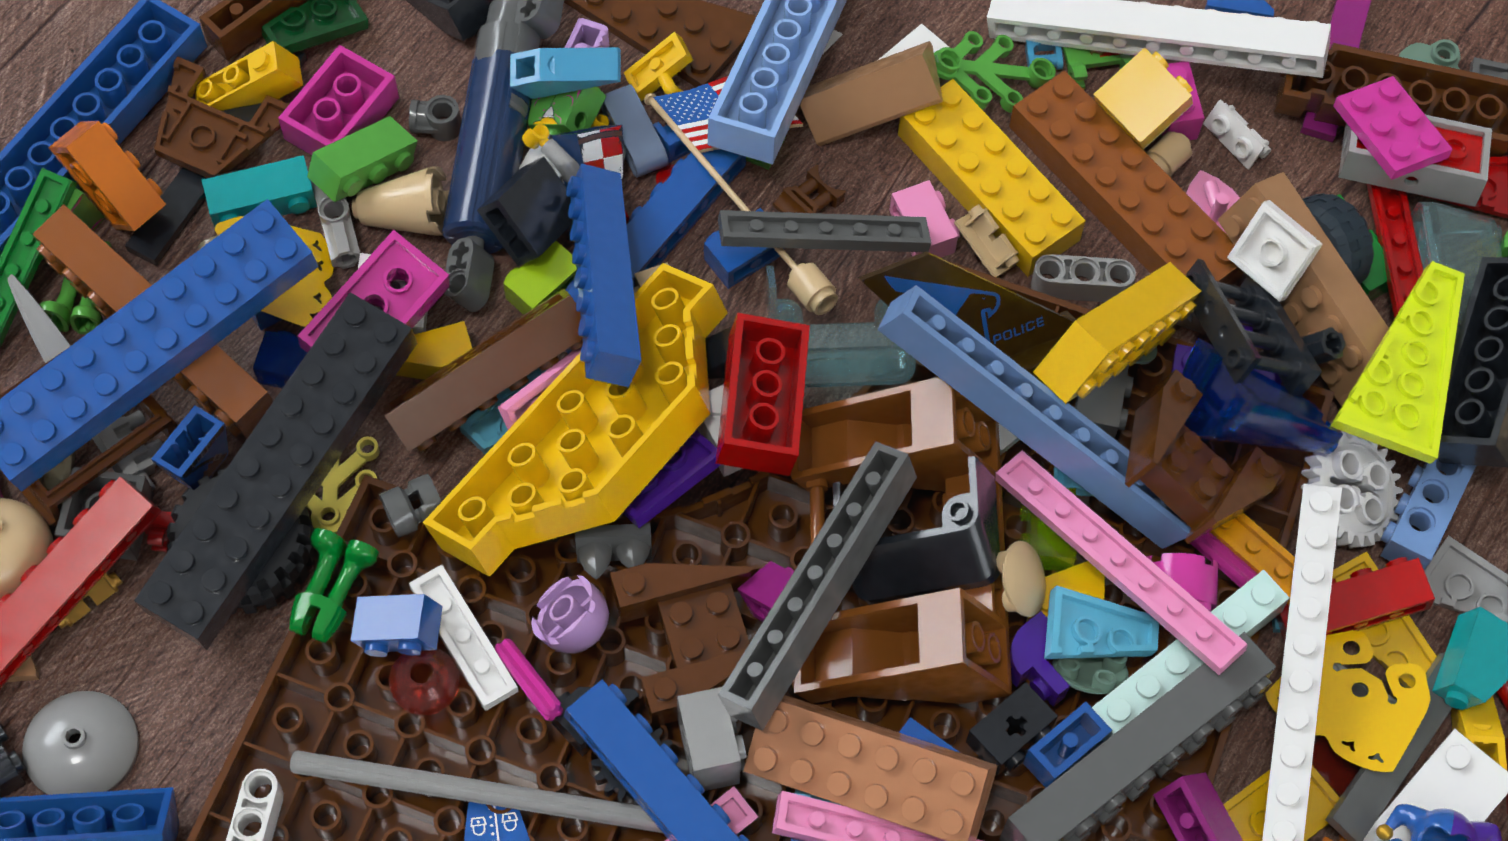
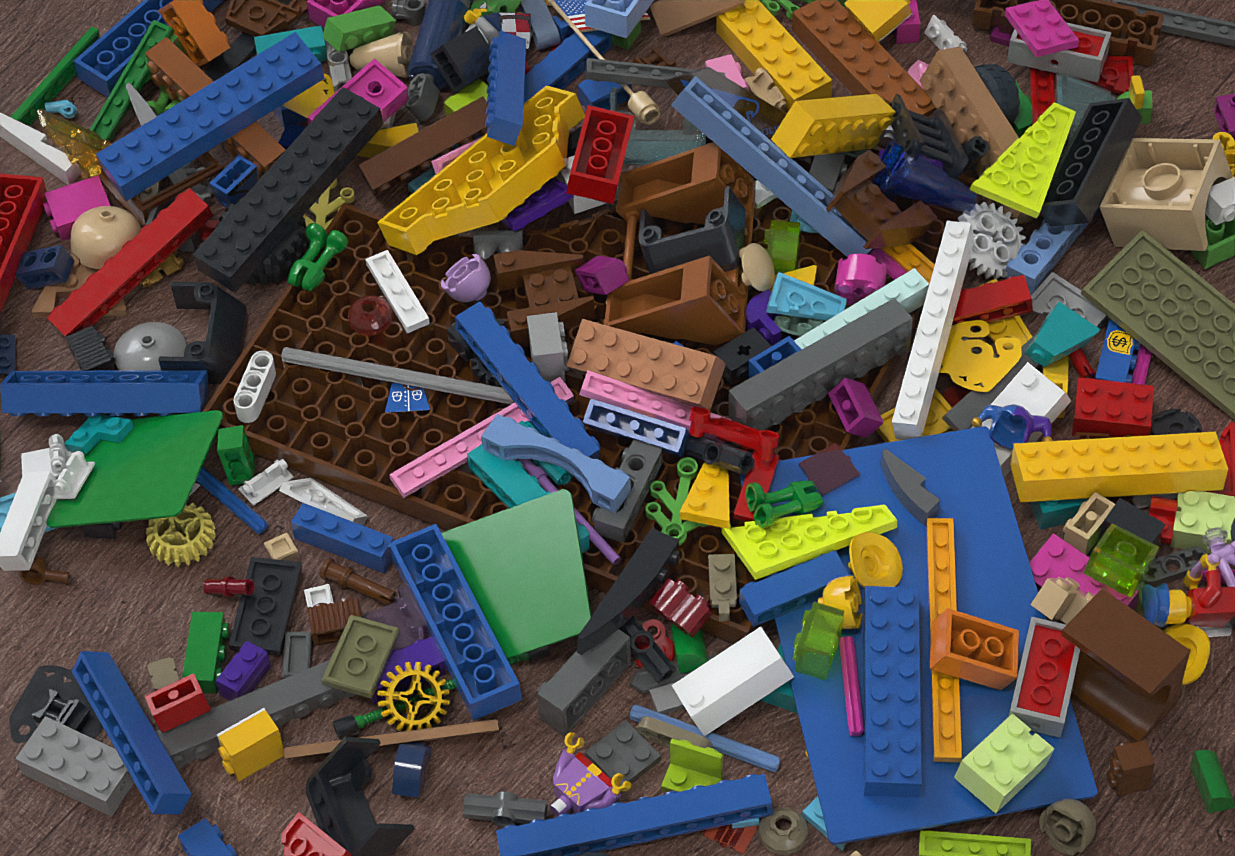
camera: 10 degrees right, 10 degrees down
(195, 716) = (224, 331): none -> black windscreen
(396, 624) = (355, 278): brick -> none
(399, 507) = (368, 216): dark grey wheel -> none
(529, 680) = (436, 313): dark pink axle -> none
(817, 586) = (621, 254): dark grey brick -> none
(1121, 563) = (820, 257): bright pink plate -> none
(1171, 152) = (898, 46): tan brick -> none
(1274, 250) = (948, 91): white tile -> none

